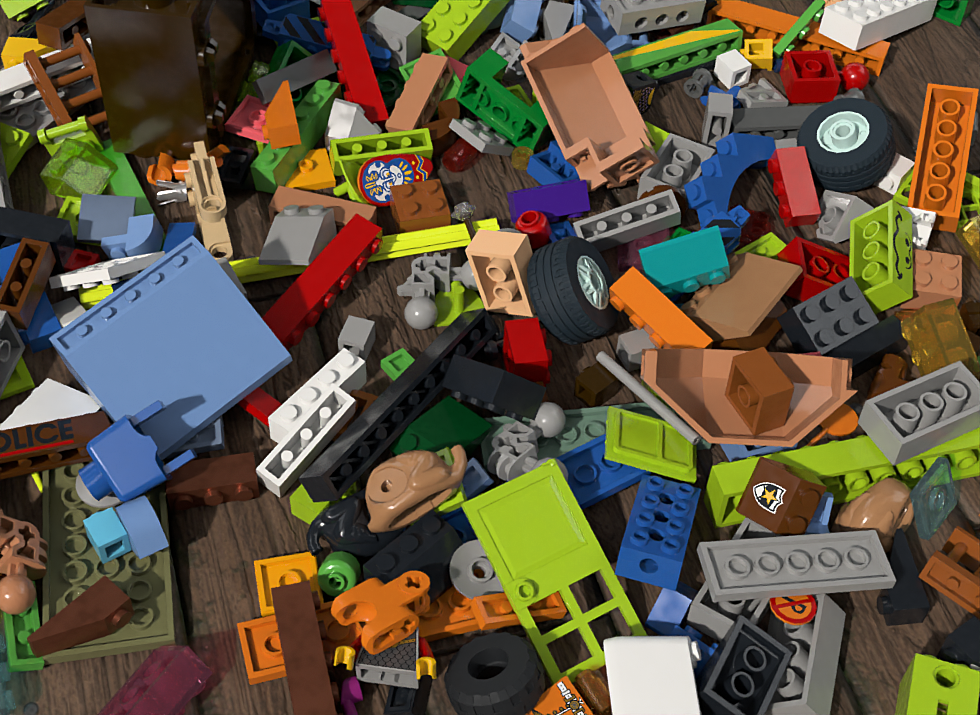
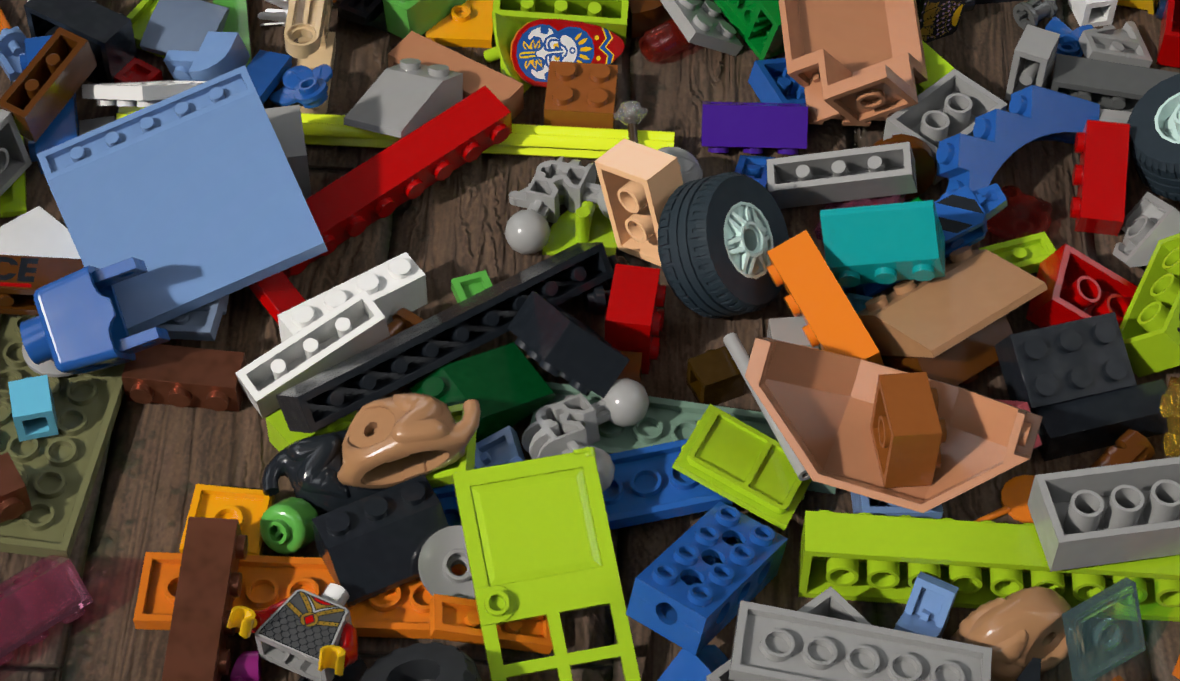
camera: 20 degrees right, 0 degrees up
(142, 527) = (73, 407): medium blue brick -> none
(218, 241) = (303, 86): none -> blue plate
(357, 336) = (434, 245): light grey brick -> none
(388, 608) = (313, 577): orange piece -> none
(521, 157) = (745, 60): clear yellow bush -> none
(535, 226) = (717, 153): red head -> none
(781, 497) = (878, 572): reddish brown slope -> none

